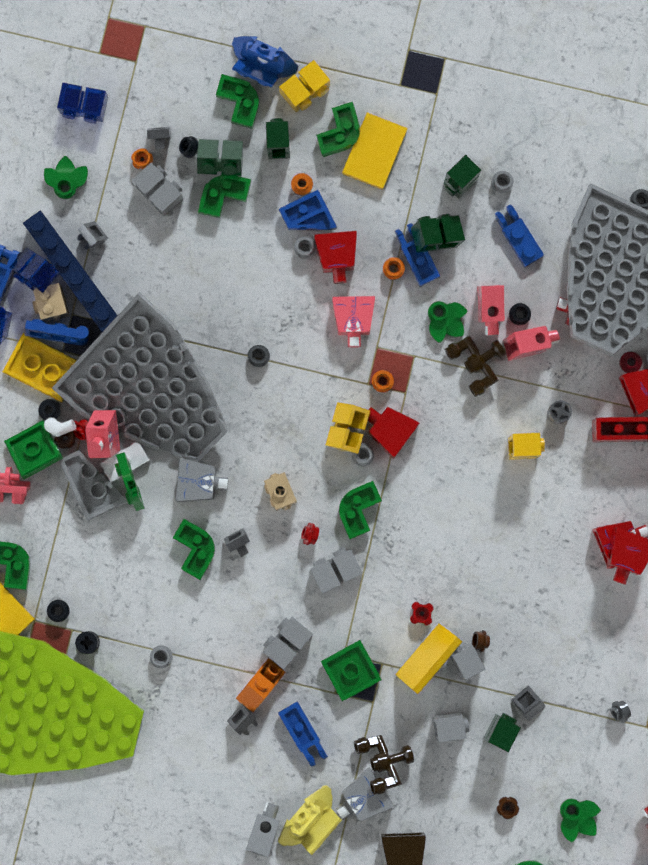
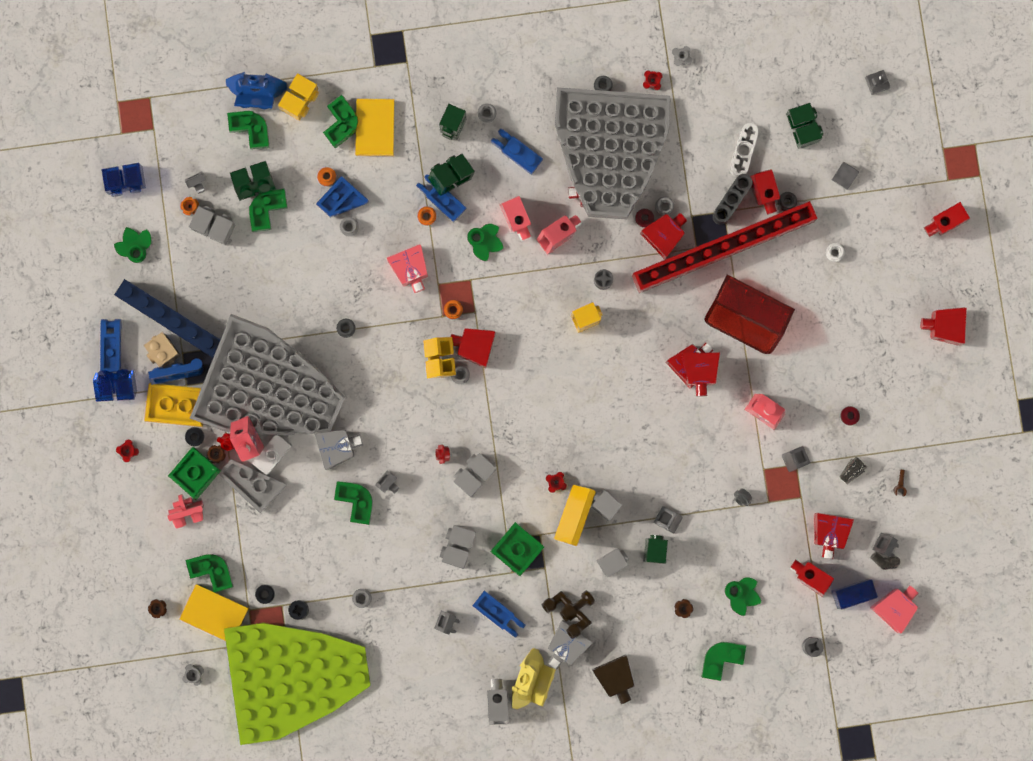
camera: 25 degrees left, 0 degrees up
(33, 270) = (138, 329): clear blue piece -> none
(57, 428) = (208, 448): white arm -> none
(92, 234) = (173, 282): flat silver tile -> none
(133, 493) = (288, 477): green plate -> none
(188, 146) = (223, 181): black plate -> none
(260, 685) = (450, 589): orange slope -> none
(277, 139) = (293, 148): dark green piece -> none
(279, 501) = (407, 437): tan head -> none
(337, 253) = (376, 221): red torso -> none
(352, 506) = (468, 416): green plate -> none
(477, 362) = (522, 265): dark brown piece -> none
(480, 640) = (611, 485): reddish brown plate -> none
(519, 307) = (541, 207): black plate -> none

